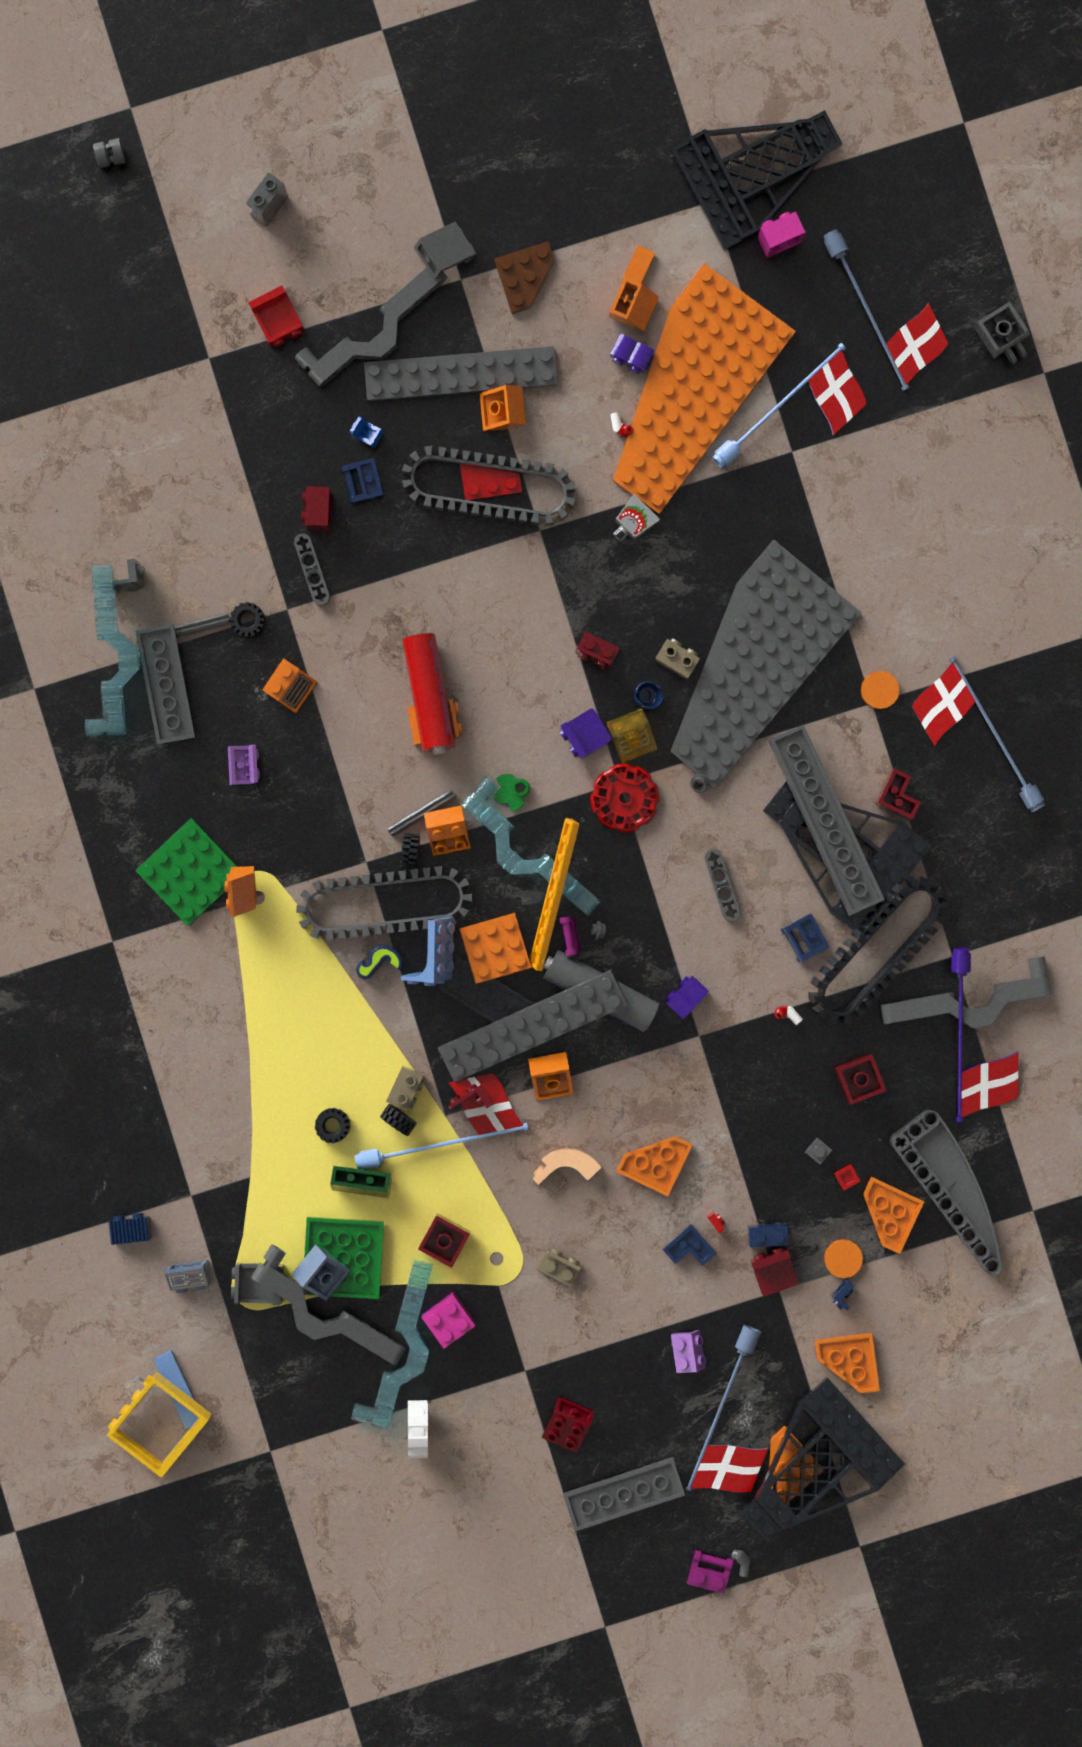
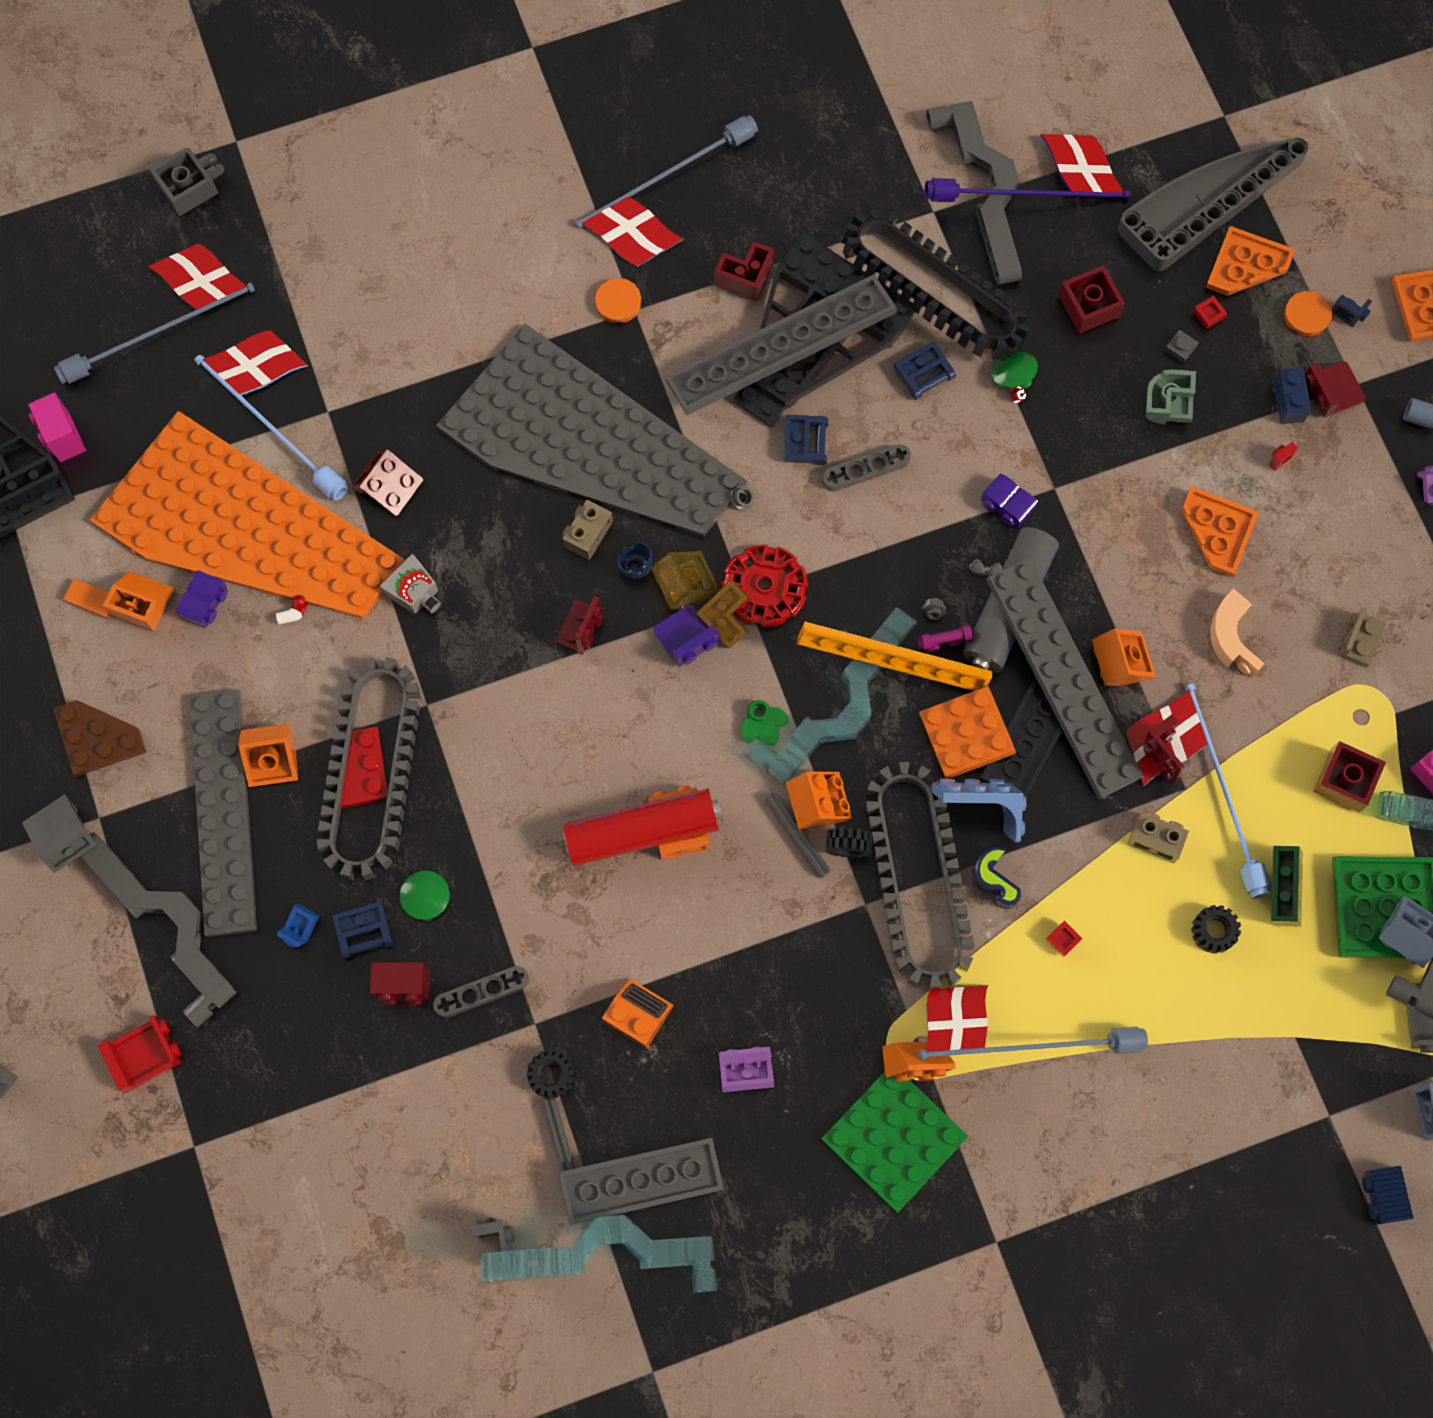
camera: 90 degrees left, 15 degrees down
(266, 924) = (960, 1026): none -> flag
(330, 1009) = (1063, 938): none -> red plate
(387, 527) = (424, 895): none -> green dish
(398, 1120) = (1201, 841): black tyre -> none
(599, 761) = (719, 613): none -> pearl gold plate
(633, 968) = (978, 568): none -> light grey piece
(689, 1241) = (1311, 489): dark blue plate -> none
(725, 499) = (388, 481): none -> bracket
(748, 831) = (798, 439): none -> dark blue plate
(770, 1135) = (1171, 396): none -> sand green brick
(799, 1011) = (1015, 370): none -> green dish

